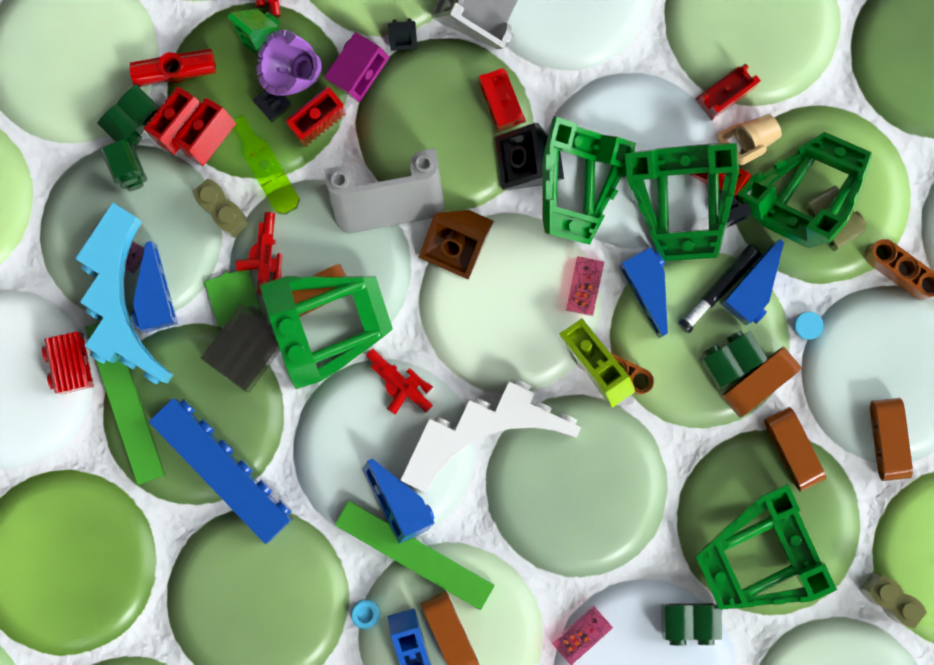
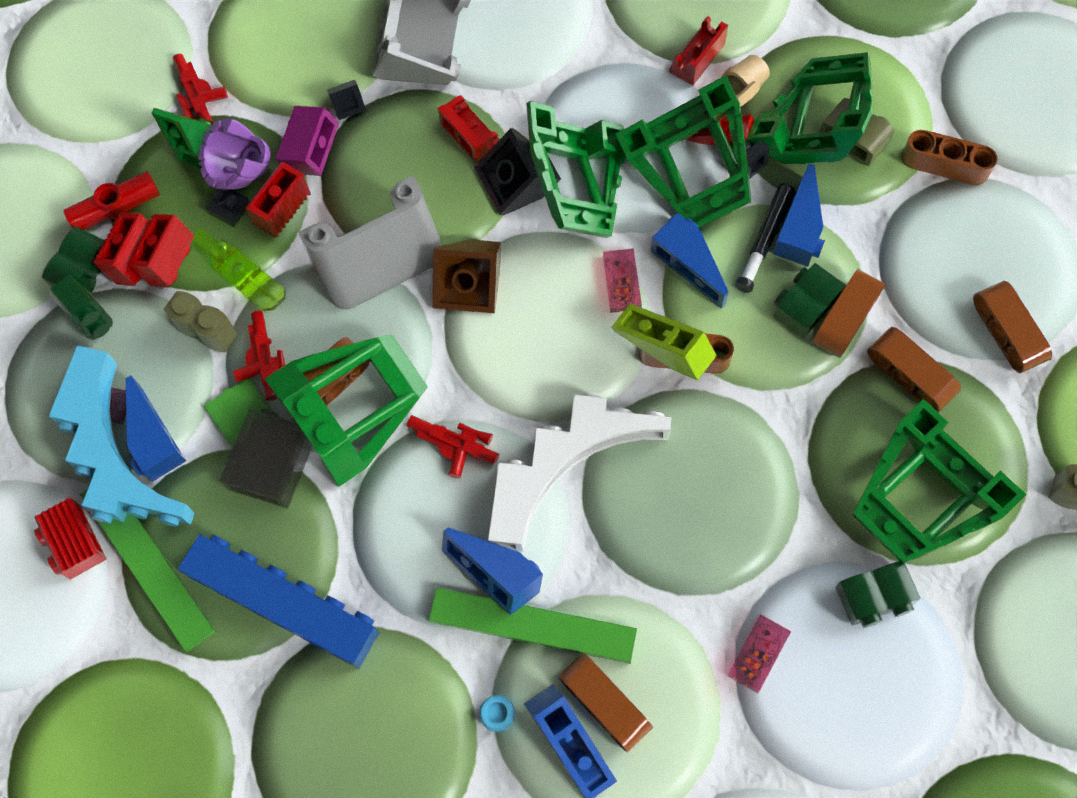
camera: 10 degrees left, 15 degrees down
(808, 326) = (874, 244): medium azure tile -> none

